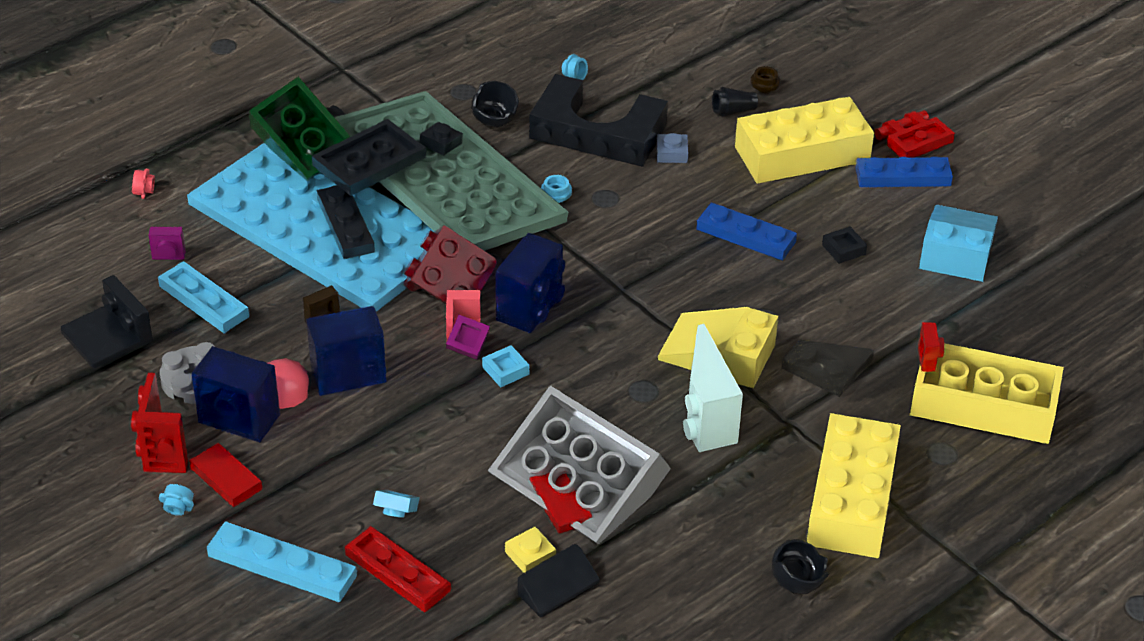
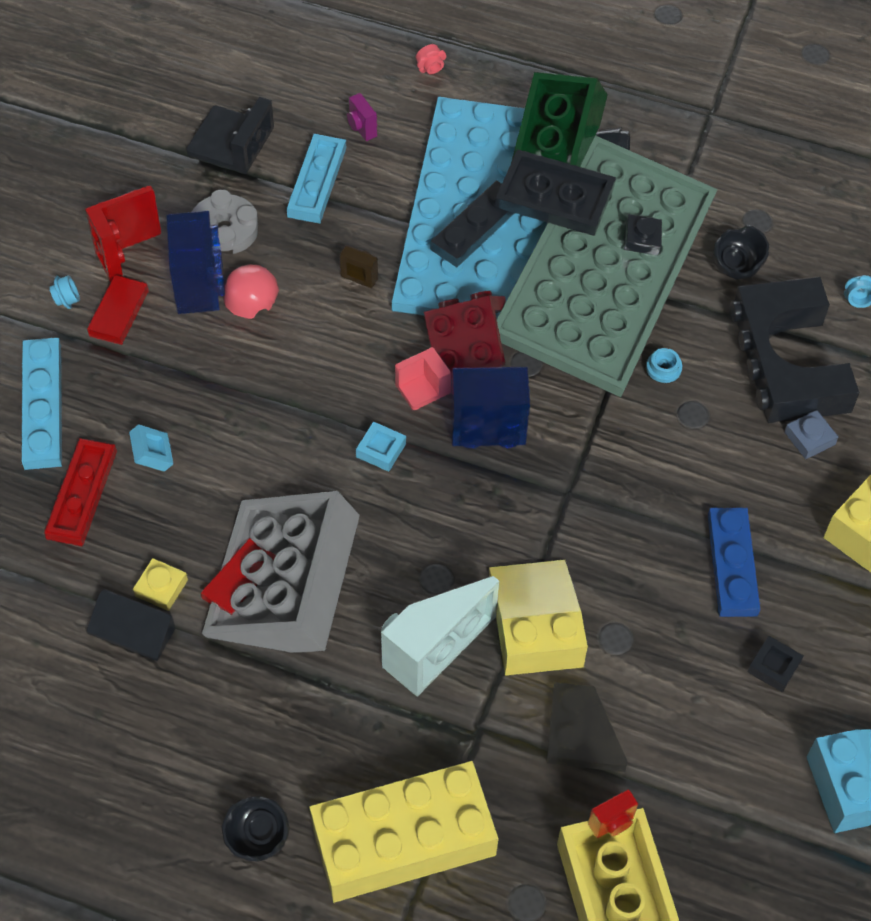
camera: 60 degrees right, 15 degrees up
(346, 350) = (299, 312): clear blue brick -> none
(468, 337) = (397, 397): magenta plate -> none

